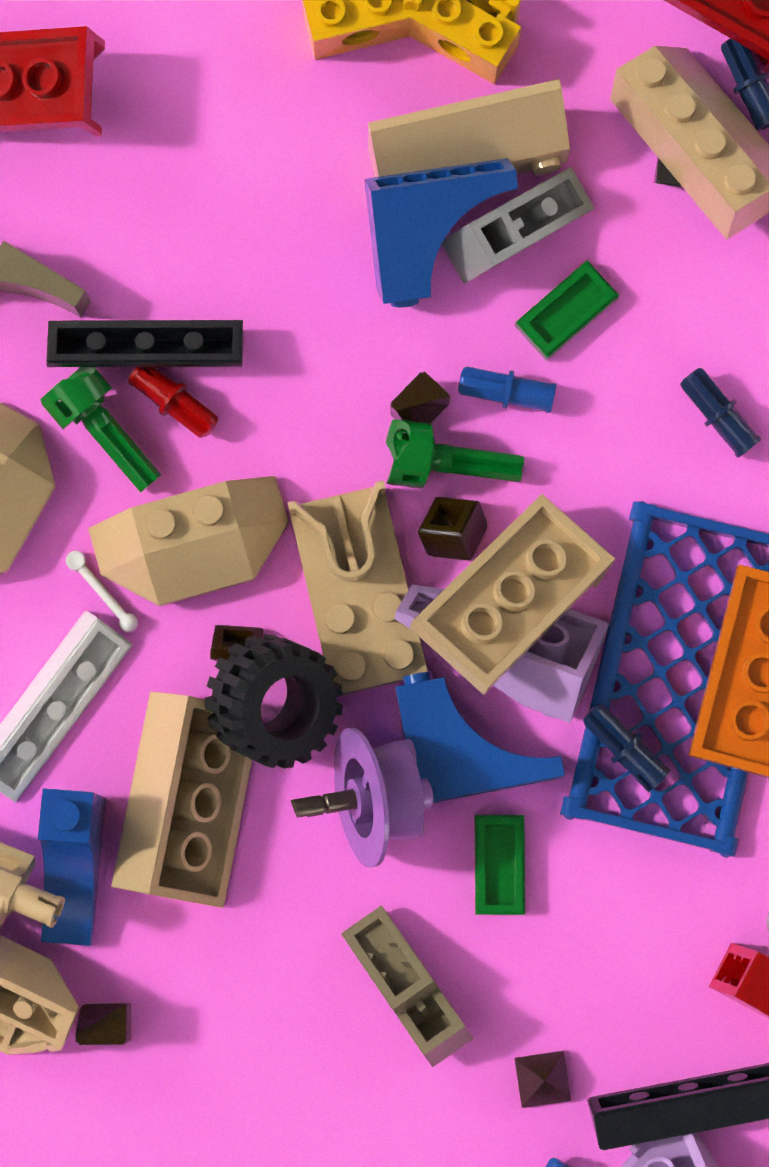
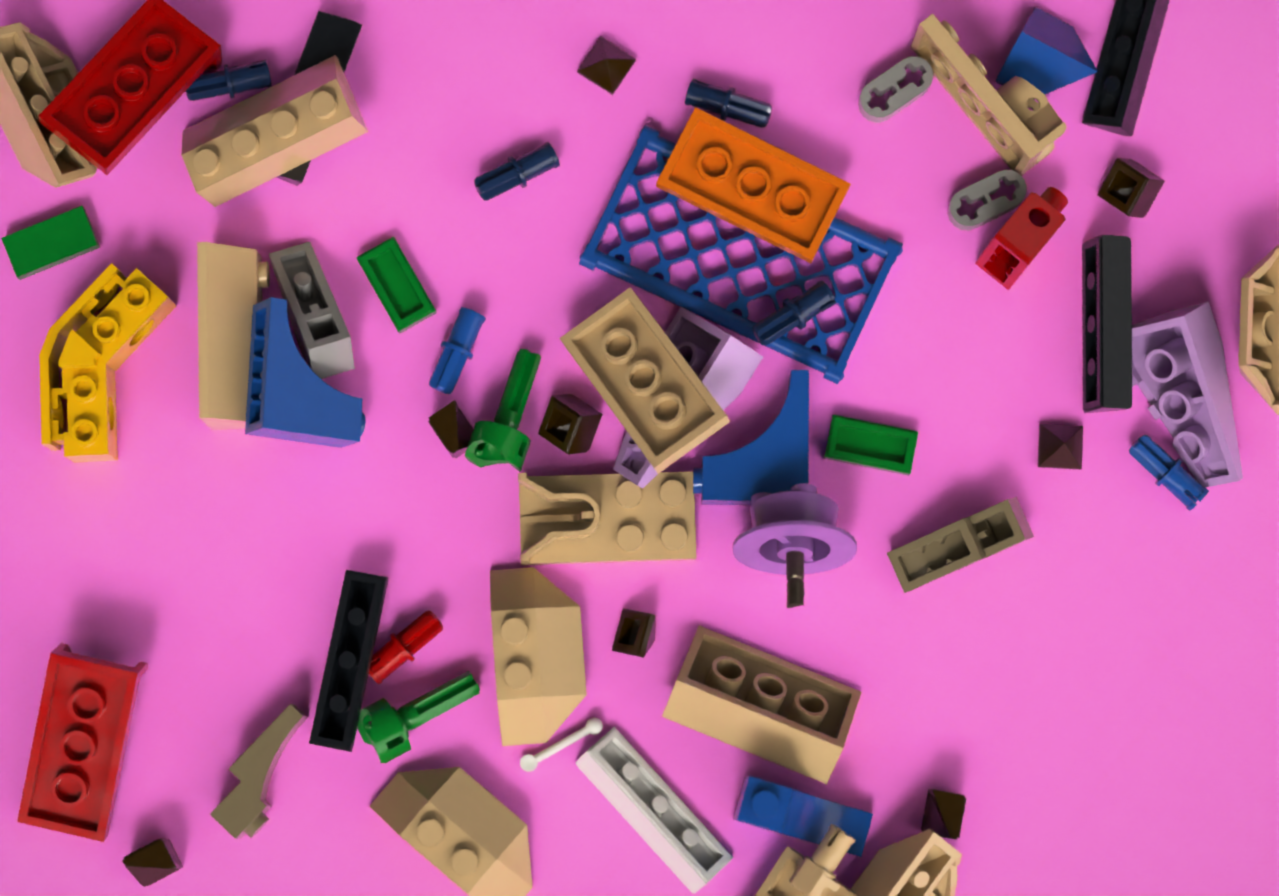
camera: 80 degrees left, 0 degrees up
(306, 712) = (677, 628): black tyre -> none

